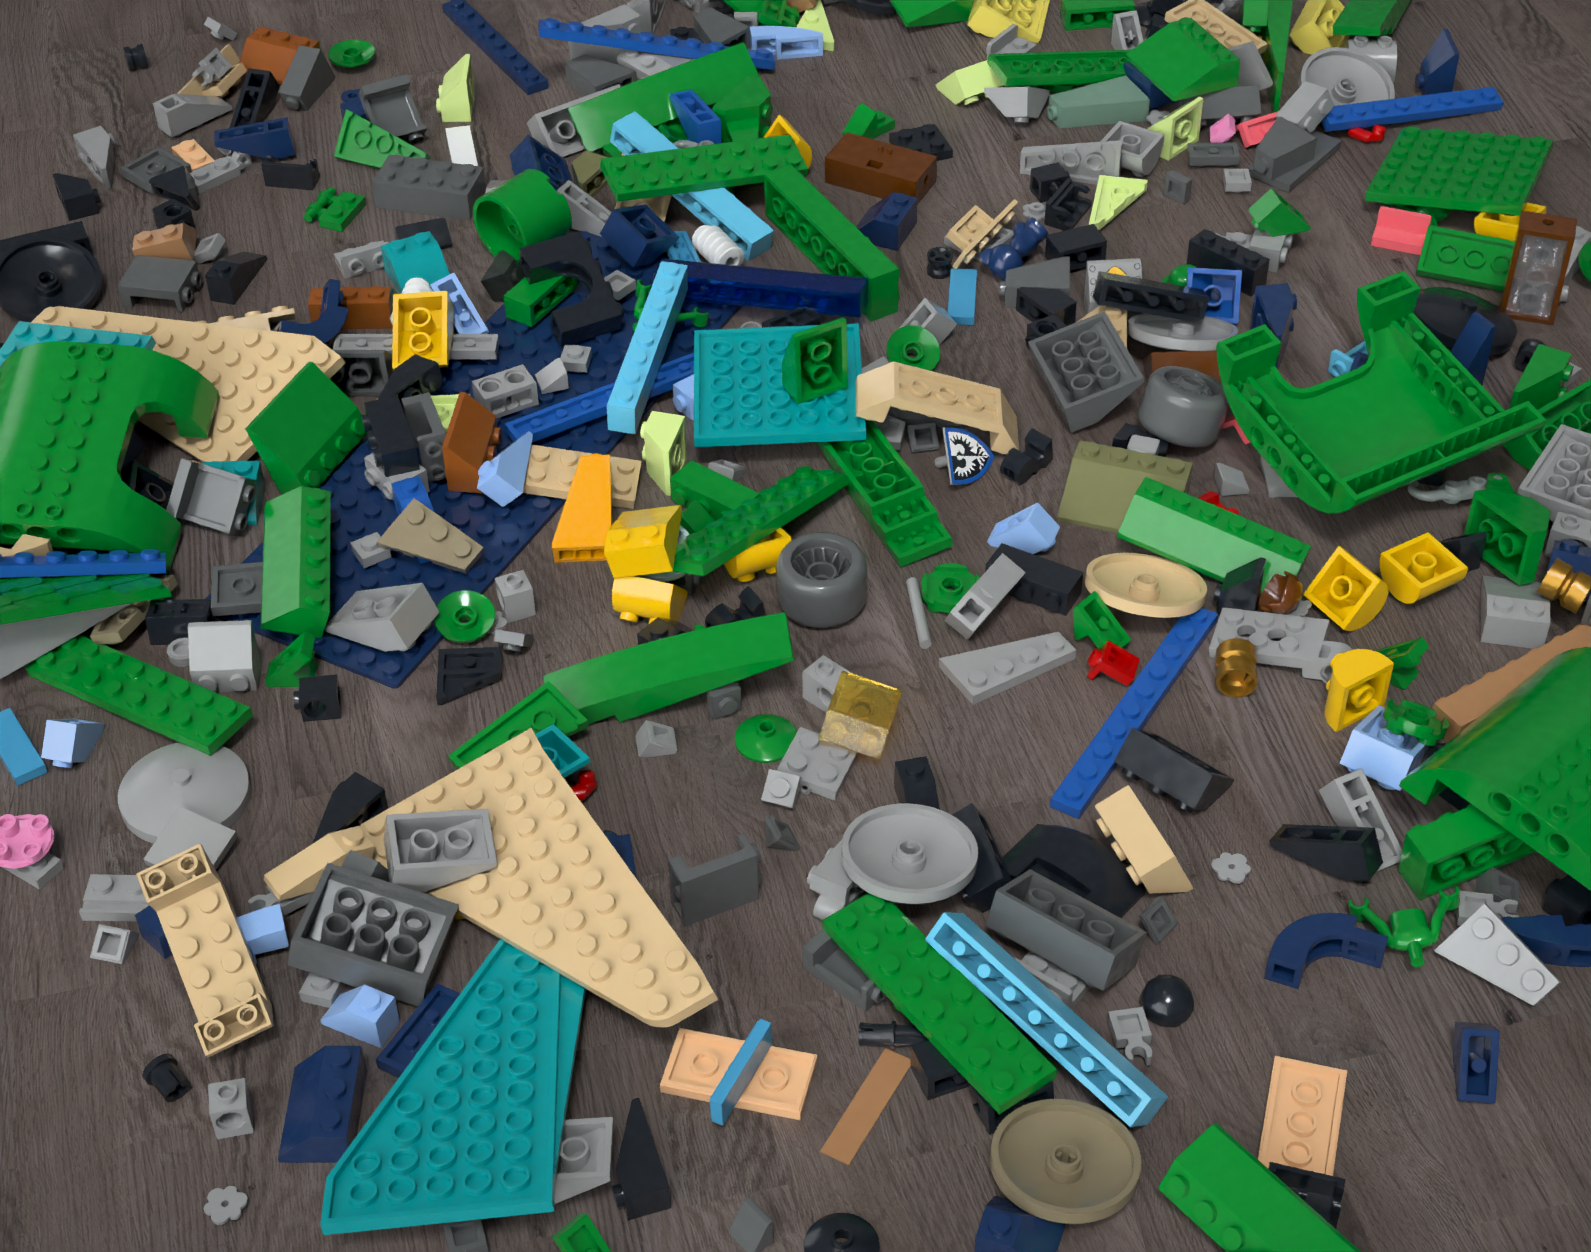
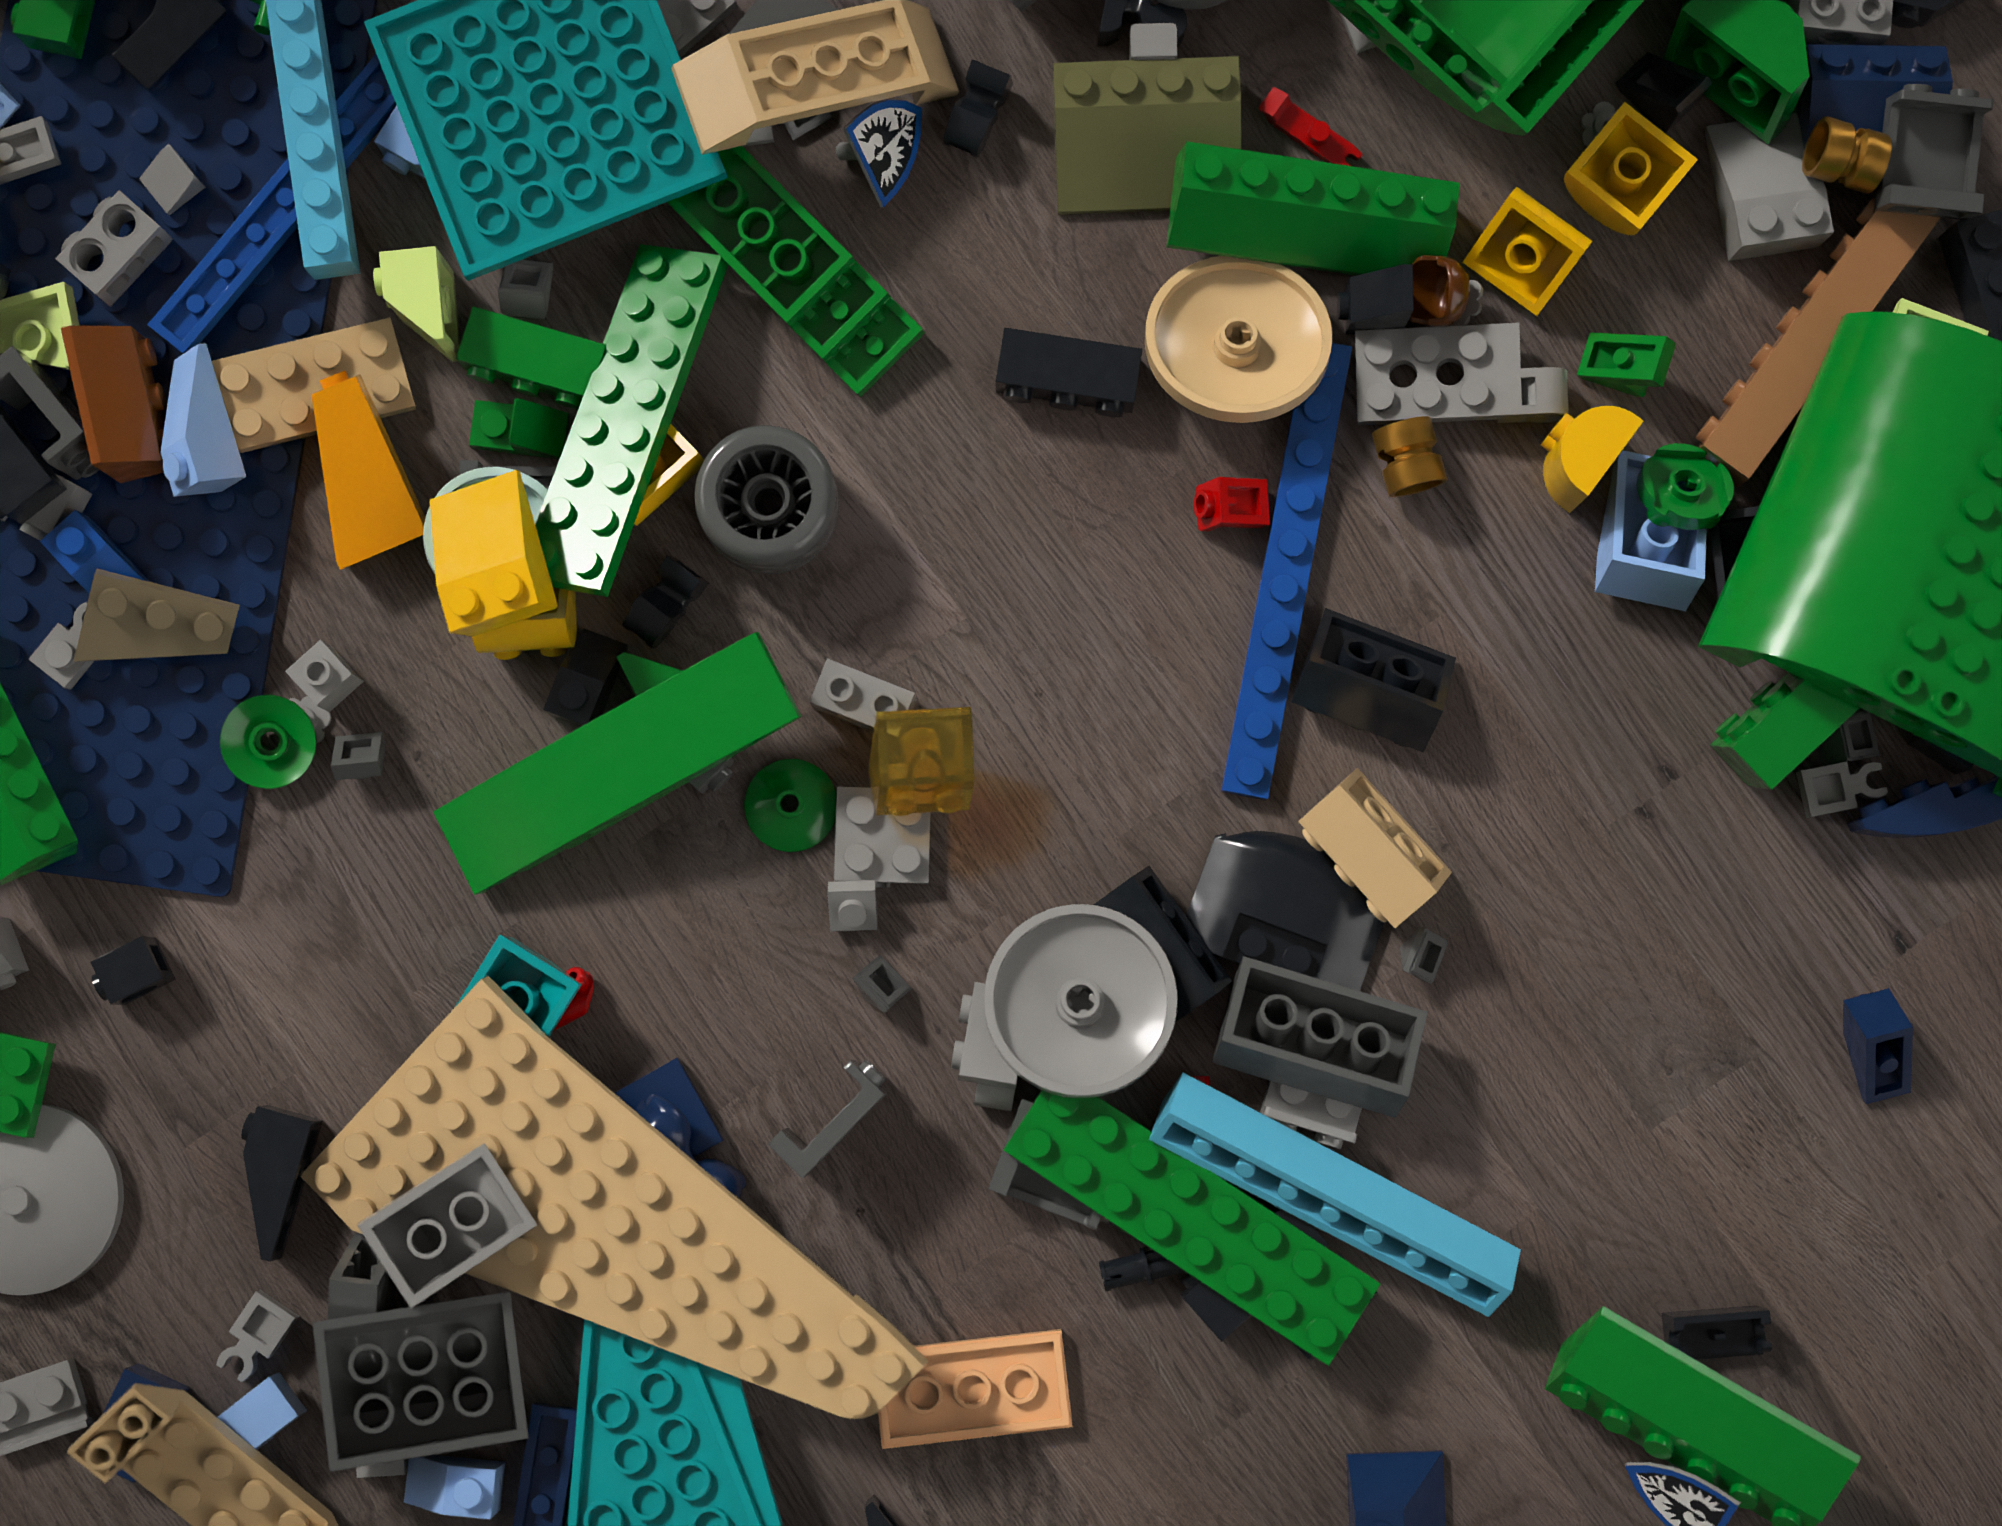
camera: 20 degrees left, 40 degrees up
(113, 944) = (66, 1484): light grey slope -> none
(187, 830) = (90, 1302): light grey tile -> none
(292, 663) = (62, 922): green slope -> none
(303, 871) = (288, 1282): tan slope -> none
(385, 617) = (152, 797): light grey slope -> none
(466, 671) = (317, 841): black wing -> none
(536, 711) = (450, 940): green wing -> none
(576, 358) = (188, 118): light grey plate -> none
(655, 740) = (641, 868): light grey slope -> none
(740, 1071) = (982, 1413): dark azure tile -> none
(816, 361) = (606, 81): green slope -> none
(866, 1106) = (1146, 1374): medium nougat sticker -> none
(915, 782) = (1044, 856): black slope -> none
(918, 613) = (920, 487): light grey bar -> none
(935, 586) = (964, 403): green plate -> none
(984, 596) = (1017, 452): light grey slope -> none
(1000, 667) = (1072, 557): light grey wing -> none
(1027, 530) = (1024, 275): light blue slope -> none
(1065, 1161) = (1425, 1396): dark tan dish -> none
(1095, 619) = (1197, 443): green slope -> none
(1132, 1031) = (1441, 1151): light grey plate -> none
(1167, 1000) = (1471, 1082): black hair -> none
(1230, 480) = (1294, 44): light grey slope -> none
(1231, 867) = (1500, 811): light grey plant -> none
(1302, 1115) = (1685, 1214): light nougat tile -> none
(1321, 937) = (1616, 939): dark blue arch -> none
(1333, 849) = (1616, 754): black slope -> none
(1355, 805) = (1648, 684): light grey slope -> none
(1409, 925) = (1753, 858): green piece -> none
(1499, 956) = (1875, 868): wing -> none

